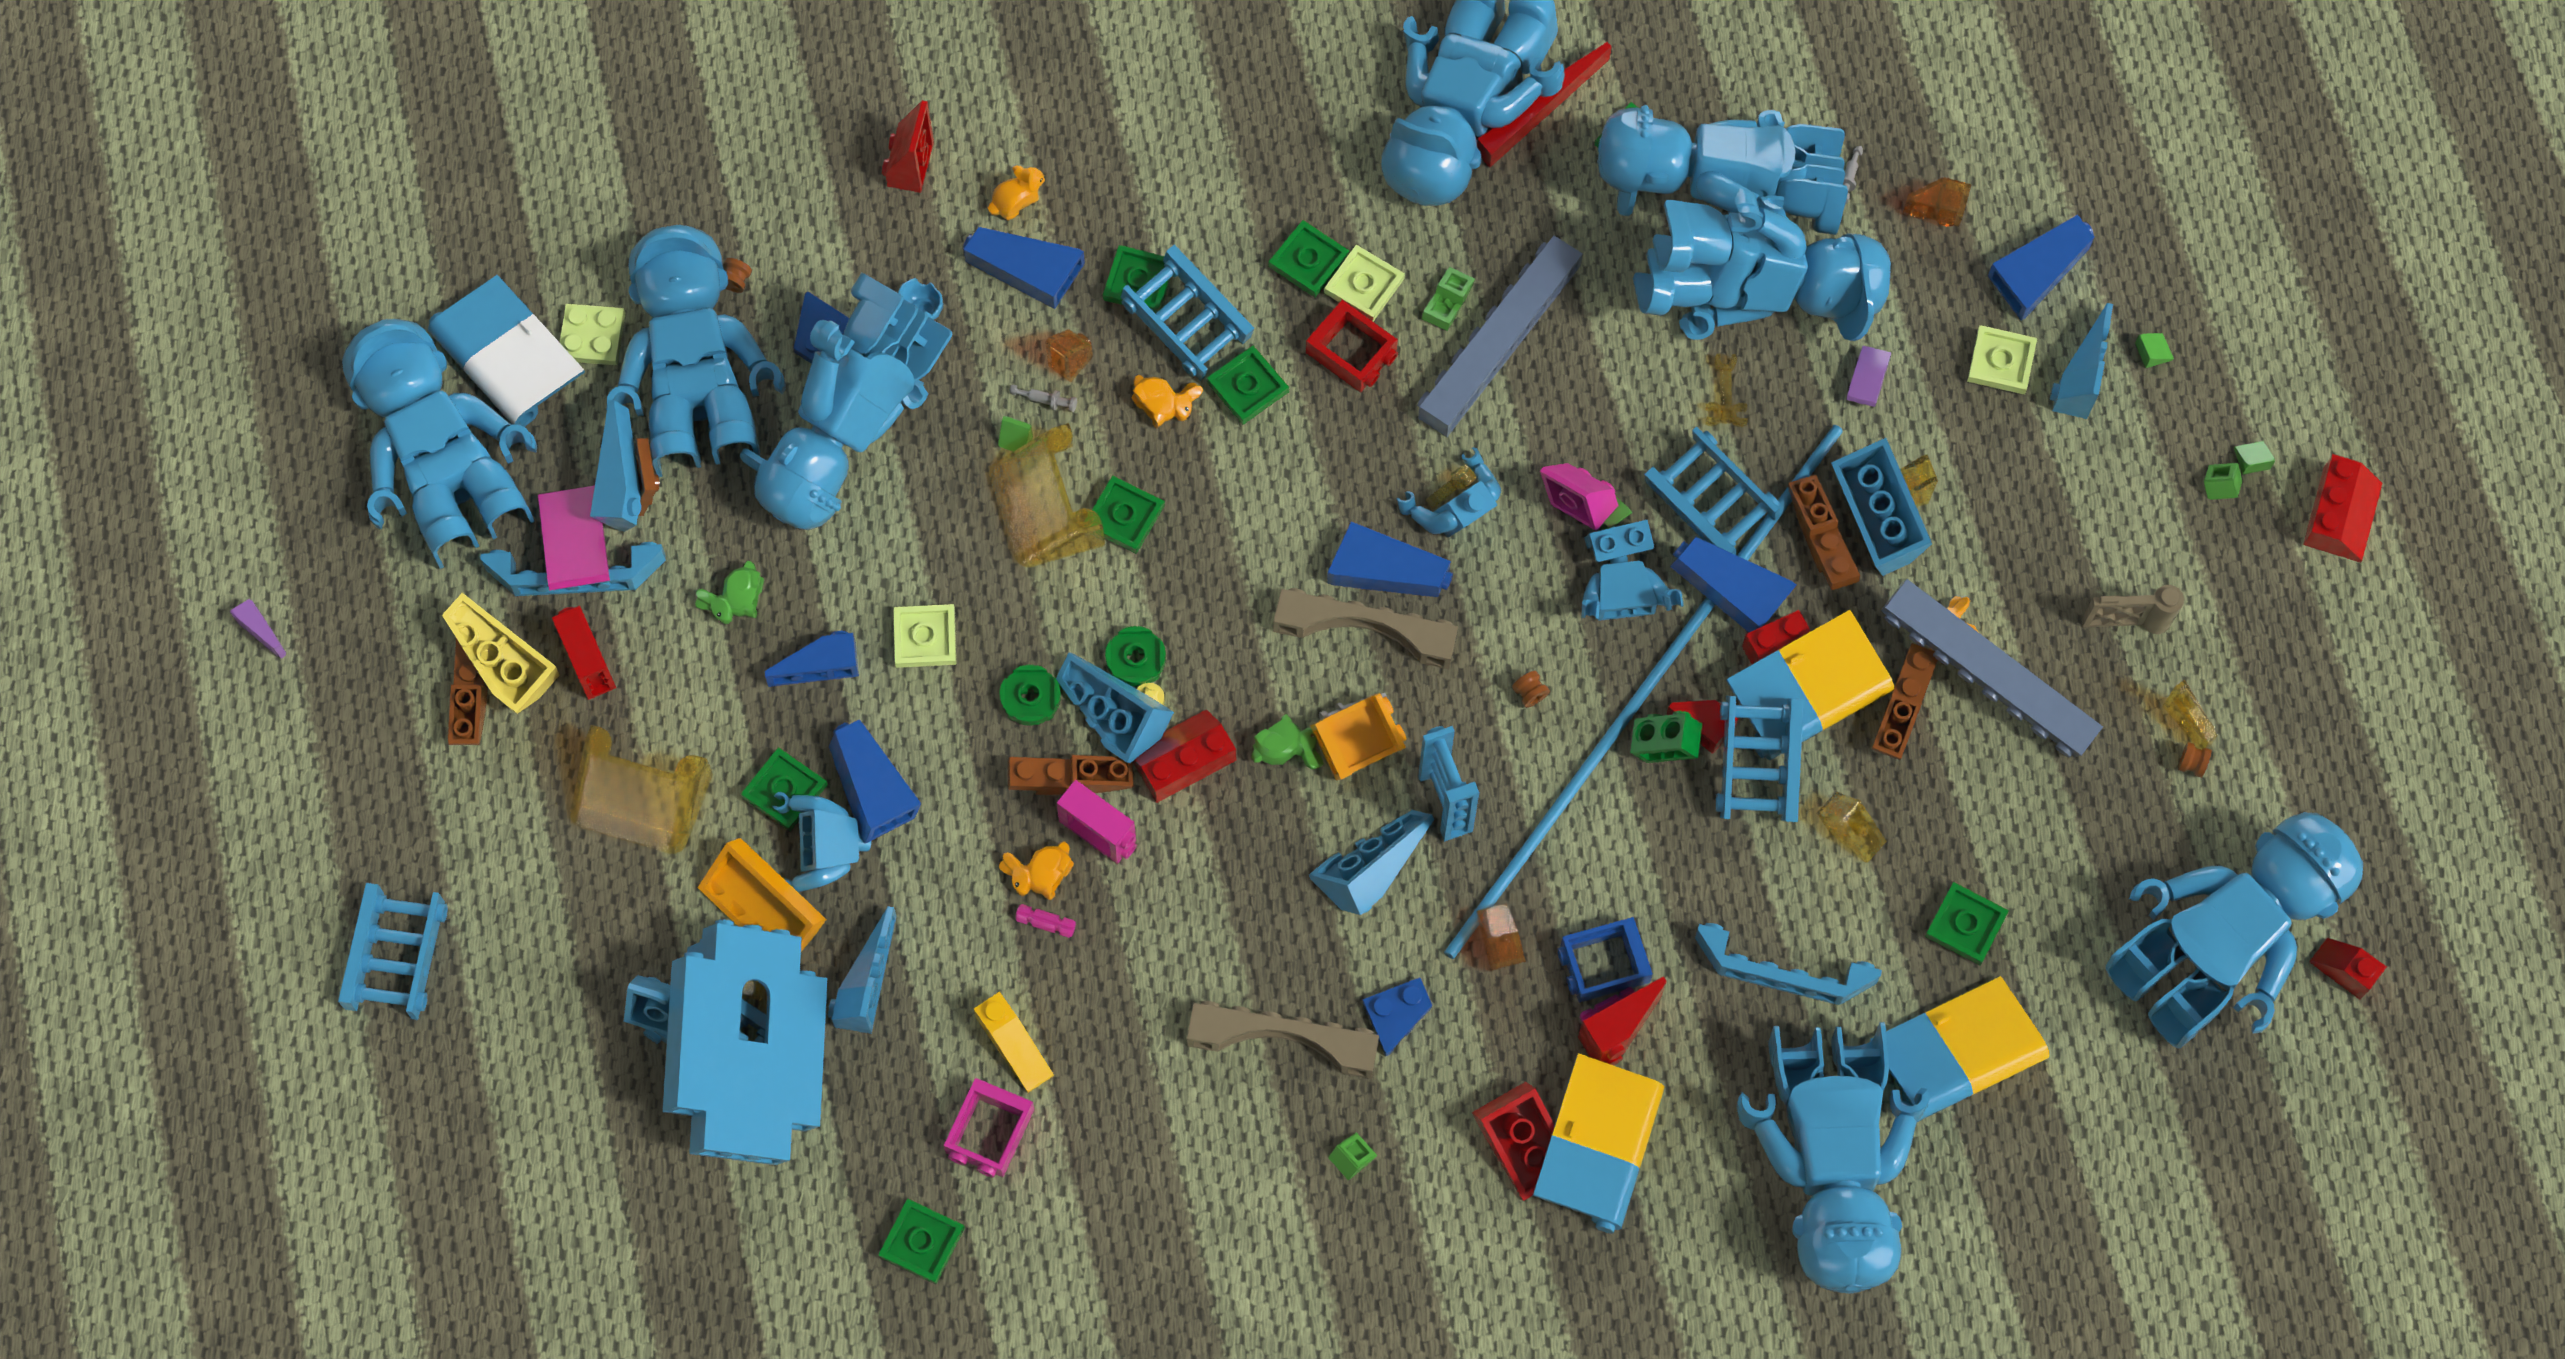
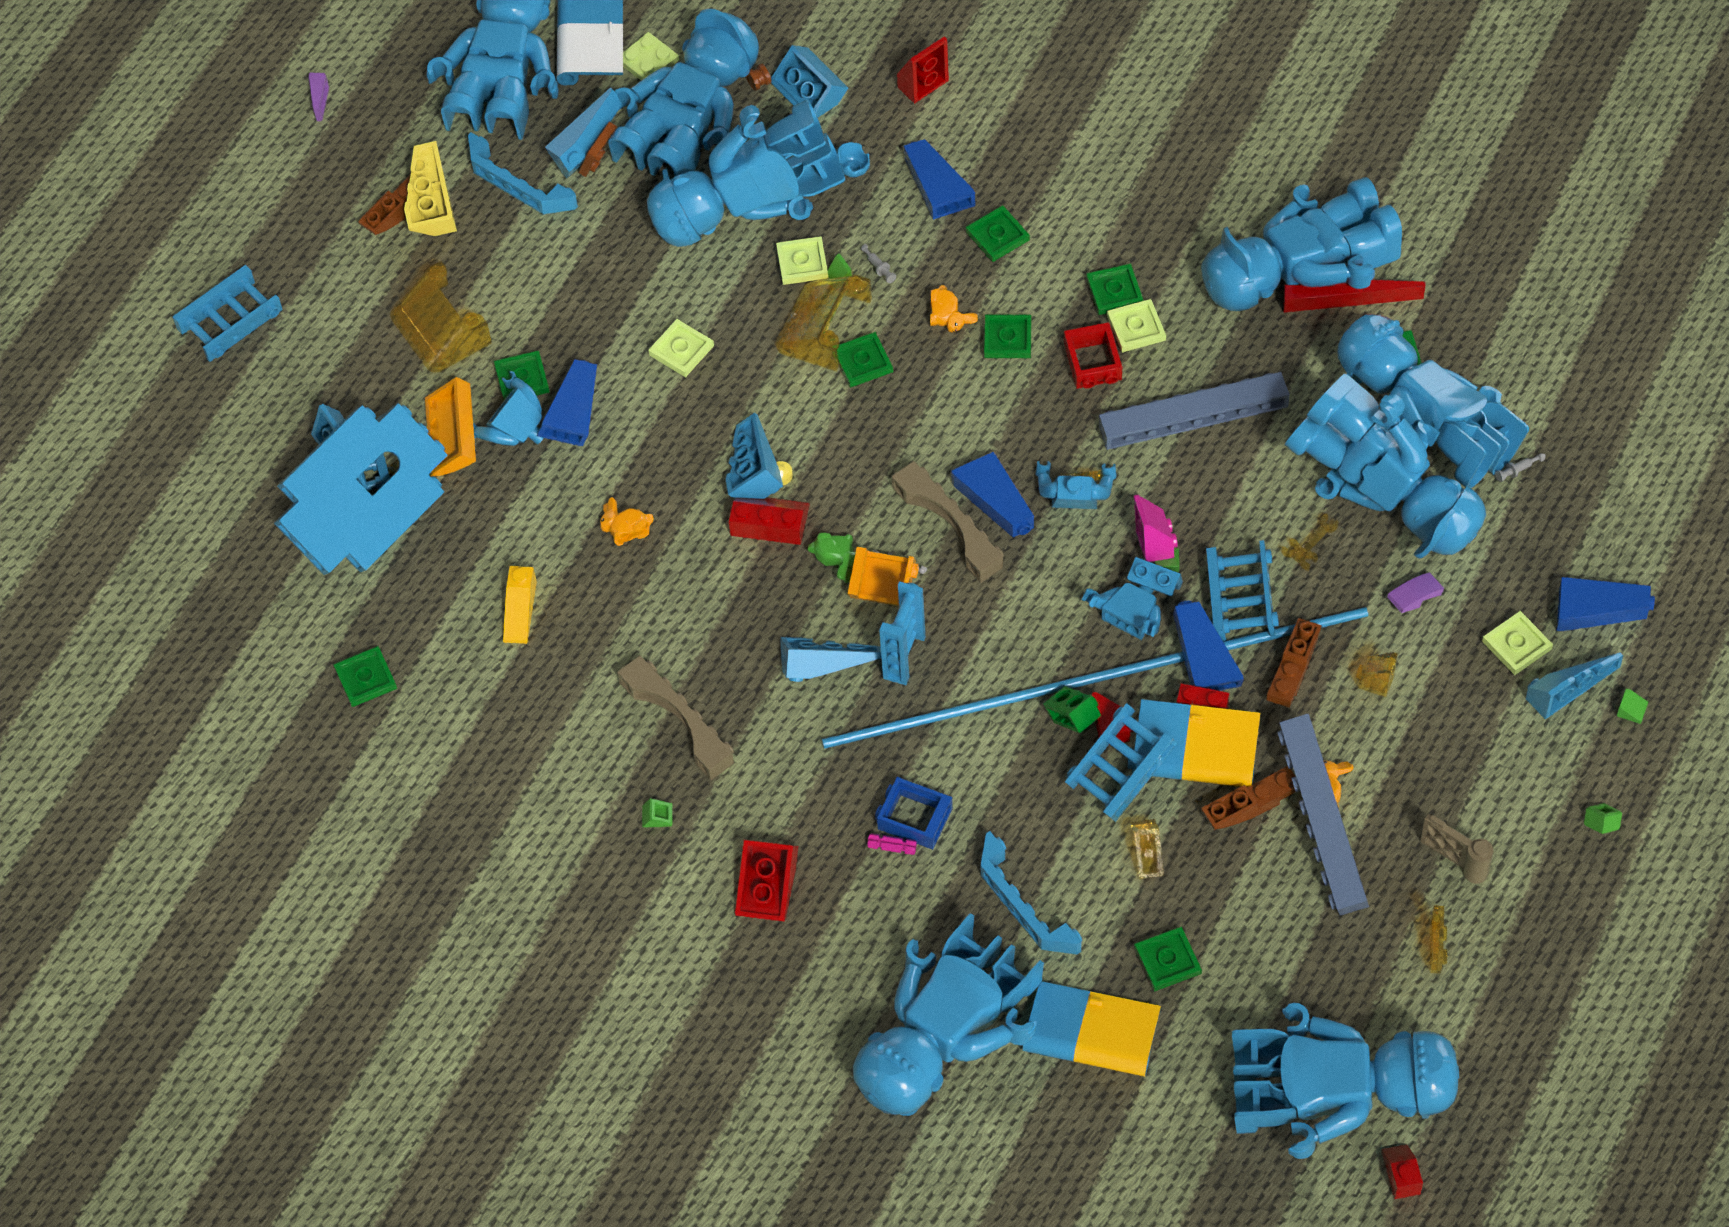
camera: 45 degrees right, 10 degrees down
(572, 539) = (526, 160): dark pink tile -> none
(583, 651) = (477, 223): red window -> none
(738, 596) = (596, 253): bright green animal -> none
(794, 246) = (807, 77): none -> dark azure slope
(824, 659) = (606, 319): blue slope -> none
(861, 988) = (465, 512): dark azure wedge -> none
(964, 449) = (802, 260): none -> yellowish green plate
(1002, 1099) = (451, 626): dark pink window -> none
(1016, 193) = (967, 136): light orange animal -> none
(1034, 711) = (712, 434): green plate -> none
(1045, 920) = (602, 553): dark pink axle -> none
(1055, 775) = (690, 482): dark orange slope -> none
(1068, 353) = (913, 244): clear orange slope -> none
(1097, 822) = (679, 515): dark pink window -> none
(1124, 644) = (795, 455): green plate -> none
(1195, 286) = (1026, 277): dark azure fence -> none
(1397, 1012) = (760, 752): blue wing -> none
(1448, 298) = (1185, 369): bright green slope -> none
(1500, 937) = (860, 754): clear orange slope -> none
(1530, 689) = (1017, 626): dark orange wheel -> none
(1599, 1141) = (809, 911): door -> none
(1615, 1027) = (885, 852): red slope -> none
(1882, 506) = (1341, 670): dark azure slope -> none
(1939, 201) = (1565, 519): clear orange slope -> none
(2194, 759) = (1416, 970): dark orange wheel -> none
(2254, 457) = (1639, 819): bright green slope -> none
(2343, 509) = (1672, 891): red slope -> none

